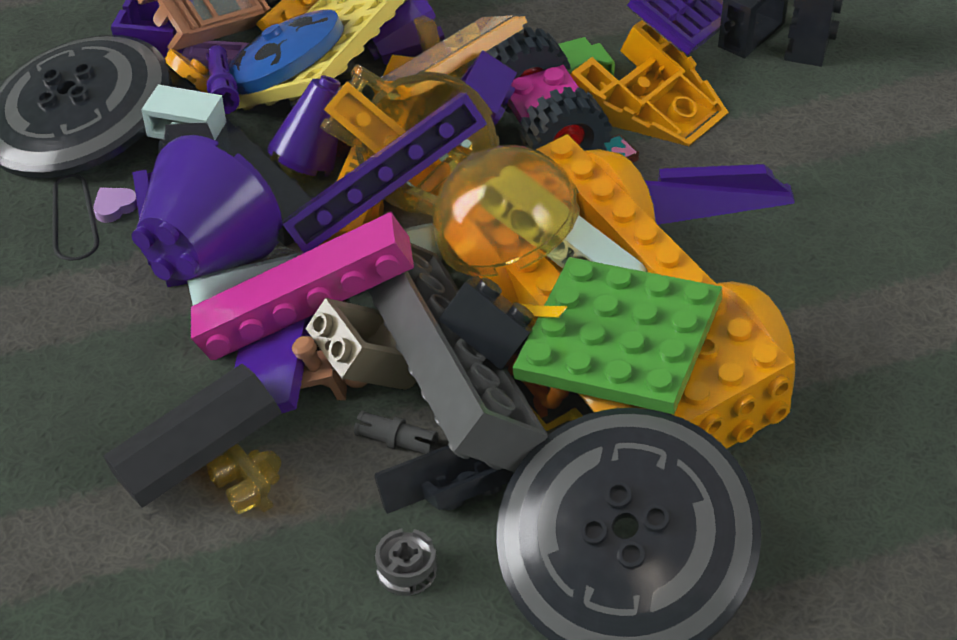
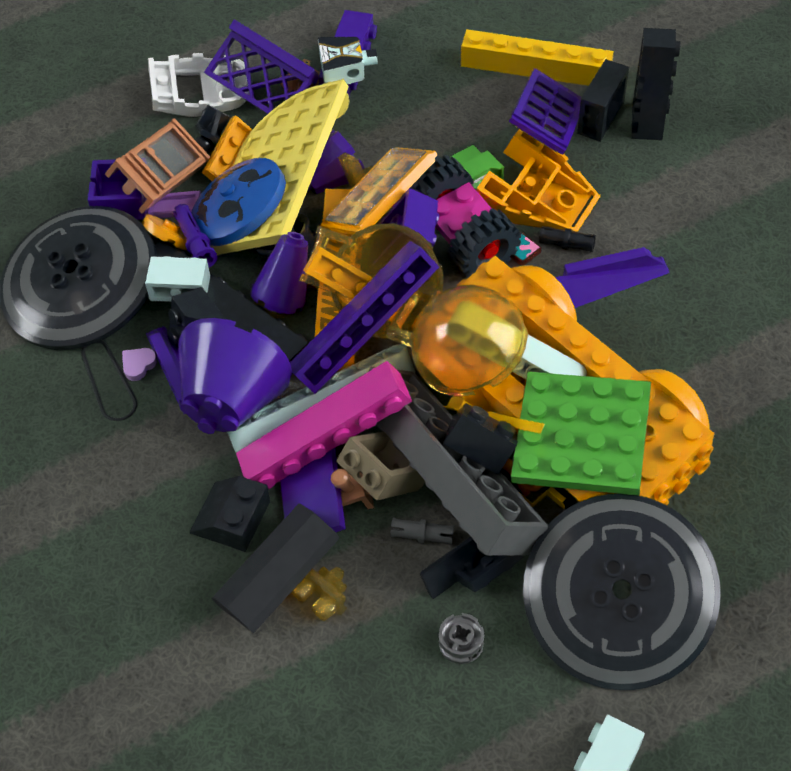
camera: 10 degrees left, 10 degrees up
(169, 373) = (232, 512): none -> black slope
(674, 148) = (567, 238): none -> black pin

